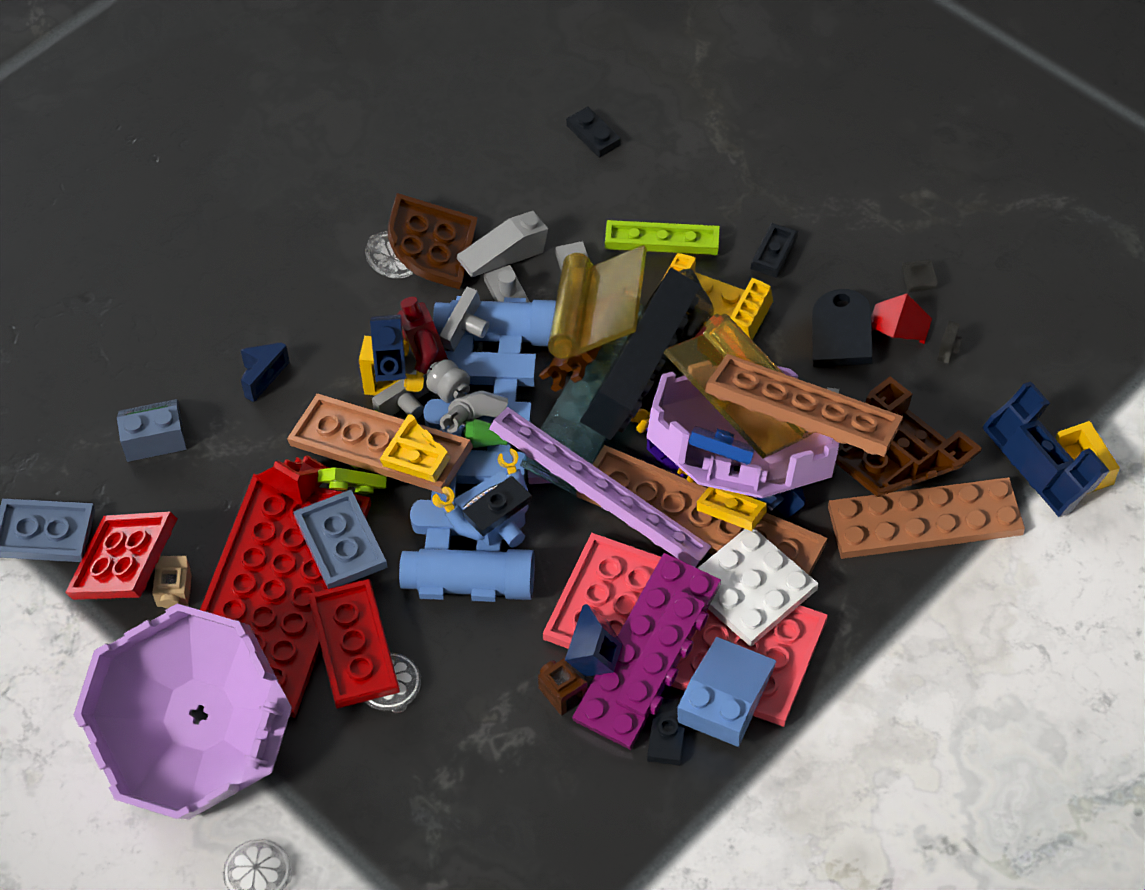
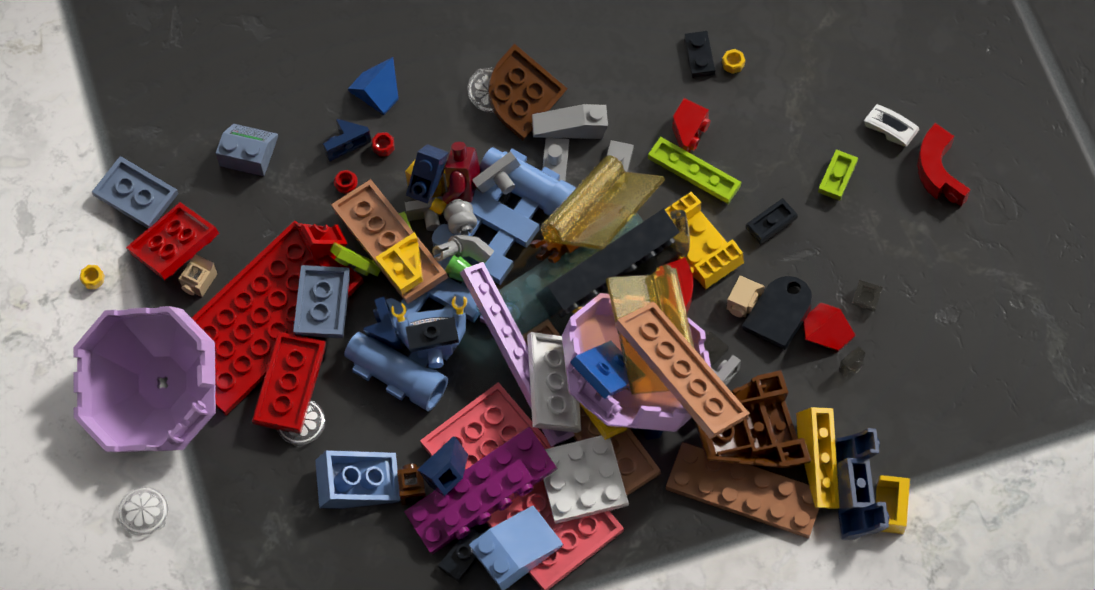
camera: 30 degrees right, 10 degrees up
(41, 643) = (92, 277): none -> yellow tile
(264, 303) = (377, 86): none -> blue slope
(287, 405) = (345, 175): none -> red plate
(306, 356) = (383, 144): none -> red tile
(434, 530) = (385, 328): none -> dark blue slope
(493, 710) = (356, 479): none -> medium blue slope
(628, 196) = (689, 123): none -> red slope
(633, 122) = (733, 61): none -> yellow tile
(657, 500) = (550, 397): none -> white tile
(796, 331) = (744, 296): none -> tan window
(811, 179) = (838, 175): none -> lime plate
(838, 112) = (892, 124): none -> white slope
(902, 135) = (931, 170): none -> red arch
(996, 459) = (818, 431): none -> yellow slope

